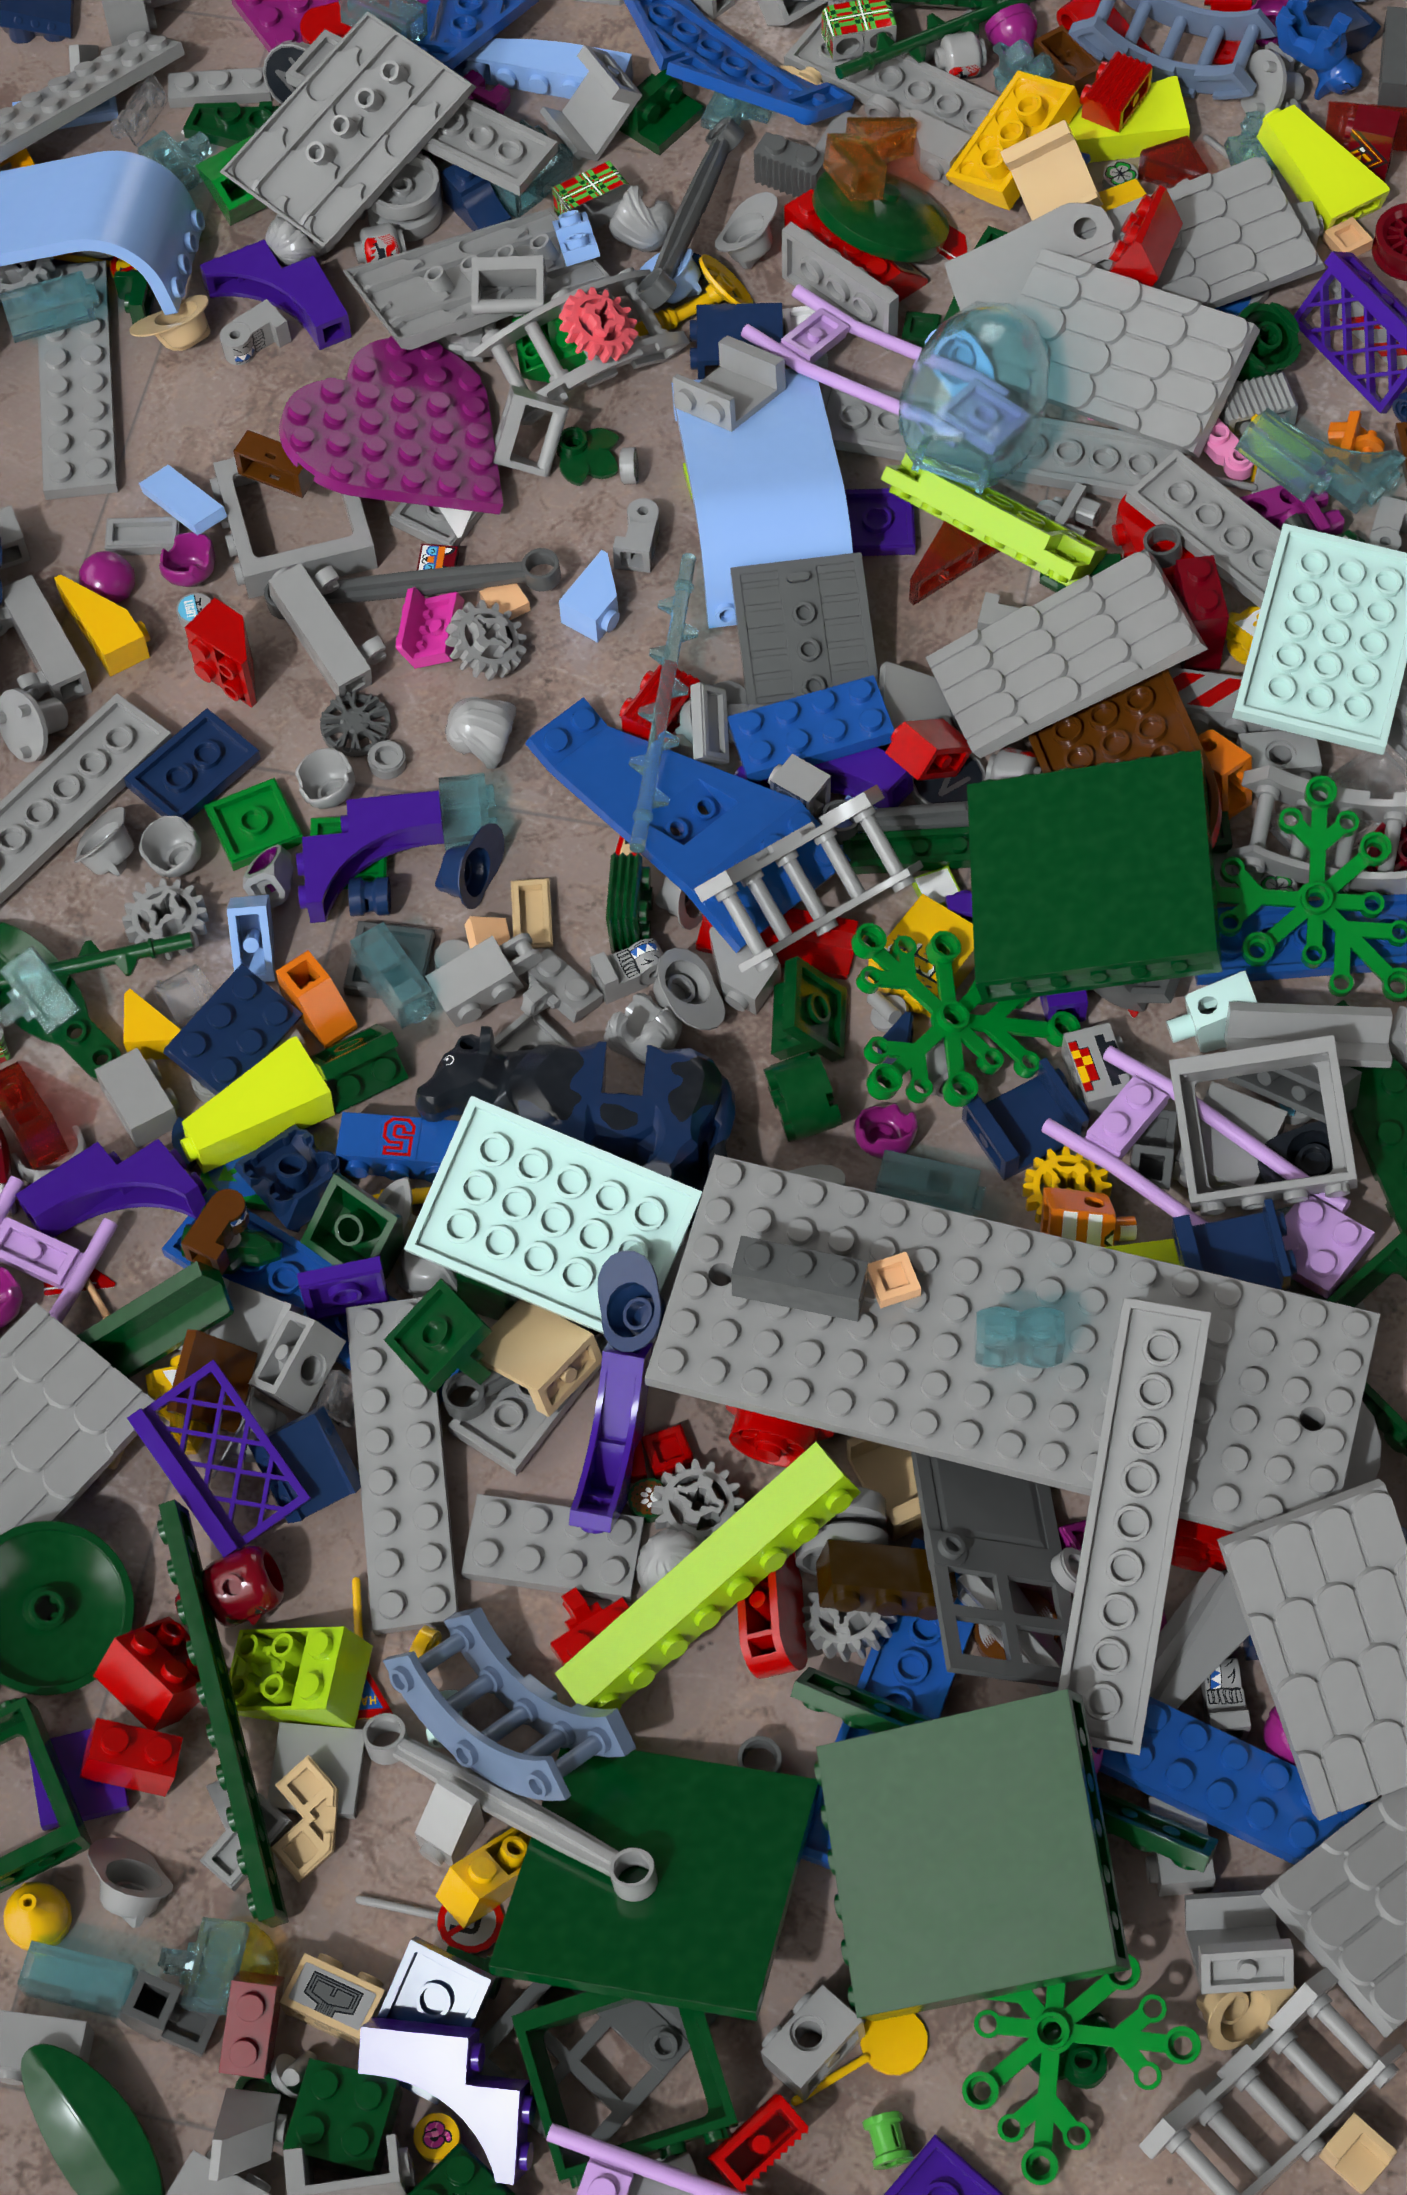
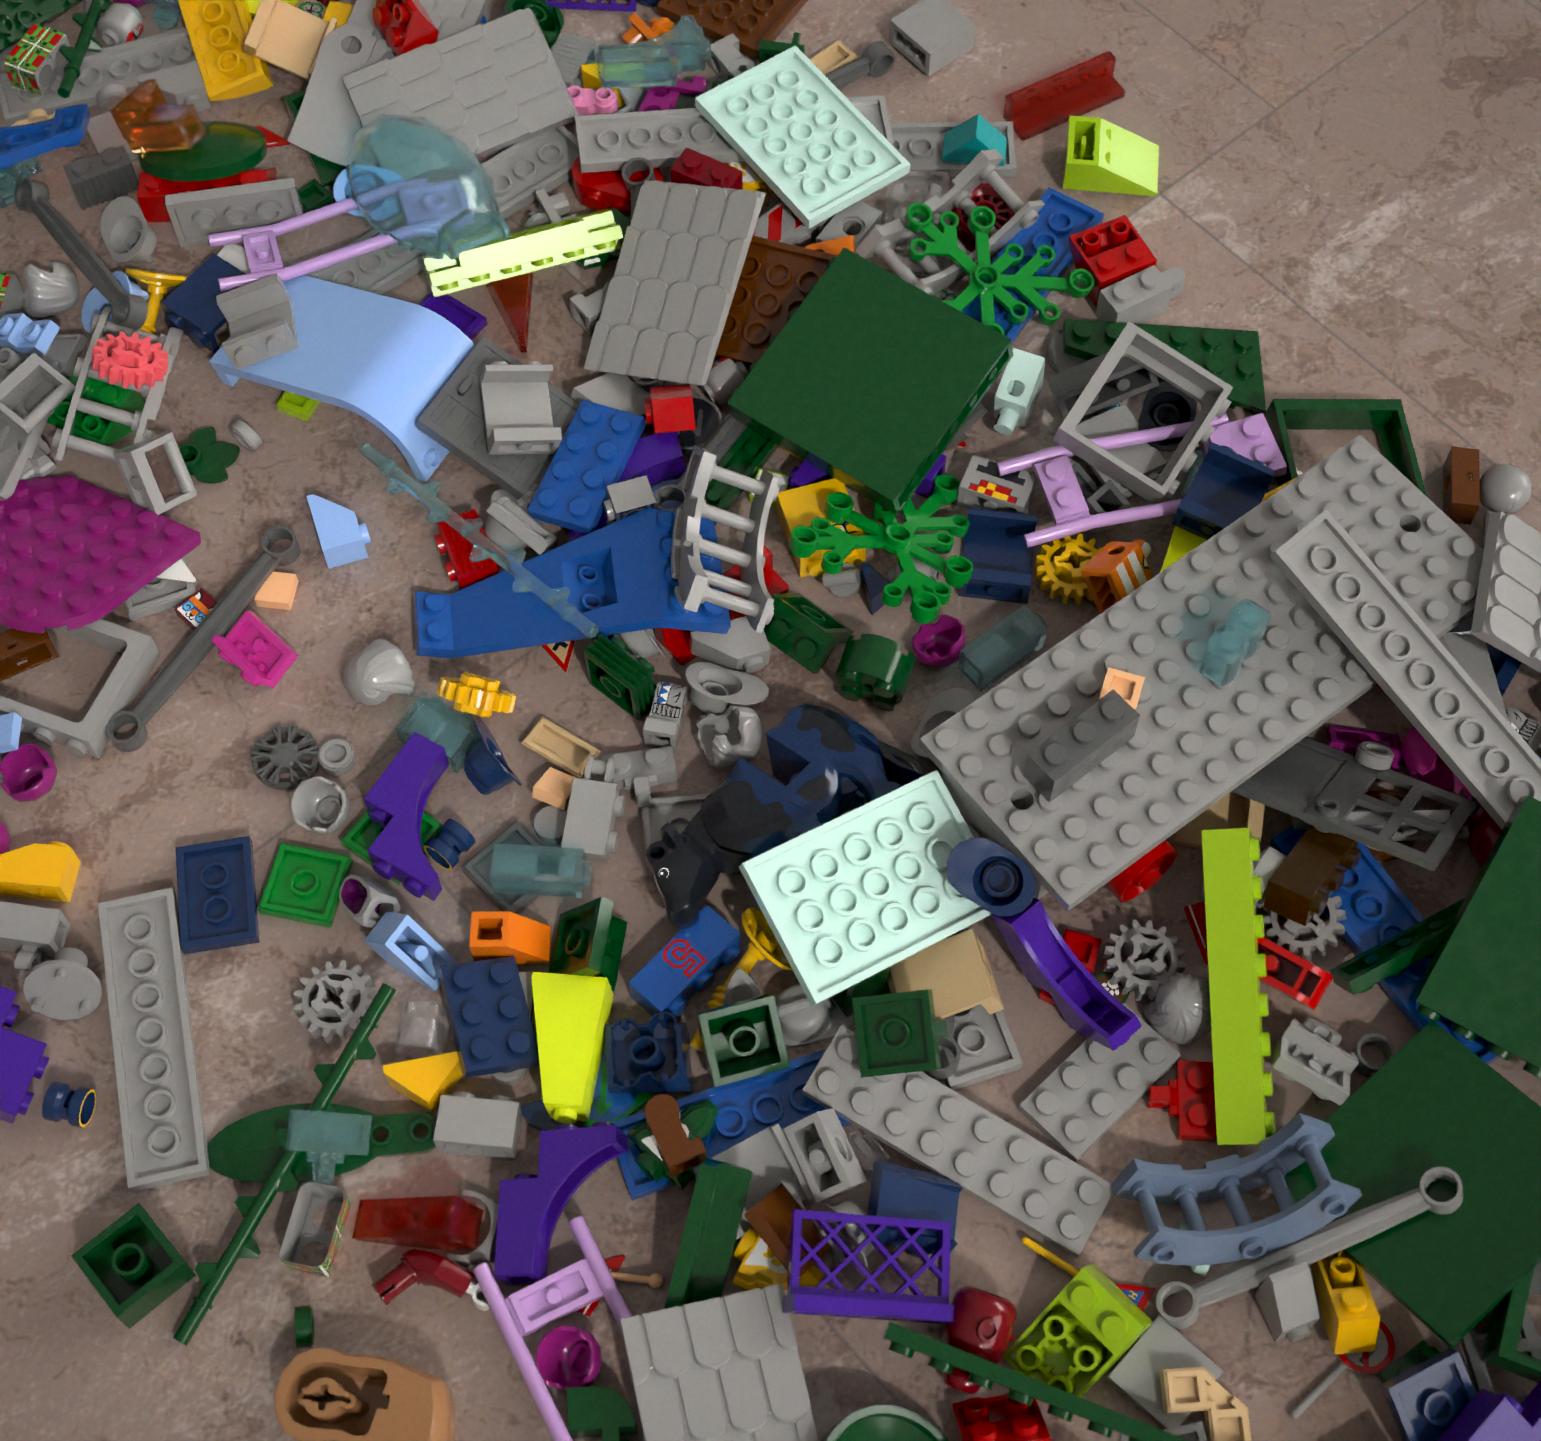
camera: 55 degrees left, 0 degrees up
(106, 844) = (225, 999): light grey piece -> none
(170, 846) = (276, 954): light grey hair -> none
(190, 606) = (75, 801): tile -> none
(223, 651) = (145, 798): red slope -> none
(320, 631) = (187, 721): light grey brick -> none
(336, 1287) = (794, 1077): dark purple tile -> none
(425, 1640) = (1123, 1226): yellow tile -> none
(485, 640) = (304, 621): light grey gear -> none
(517, 811) = (476, 694): none -> yellow gear
(638, 547) = (312, 467): light grey leg -> none
(709, 1708) = (1315, 1059): none -> light grey slope
(814, 634) = (518, 409): none -> light grey panel
(1358, 1032) = (1079, 354): light grey panel -> none

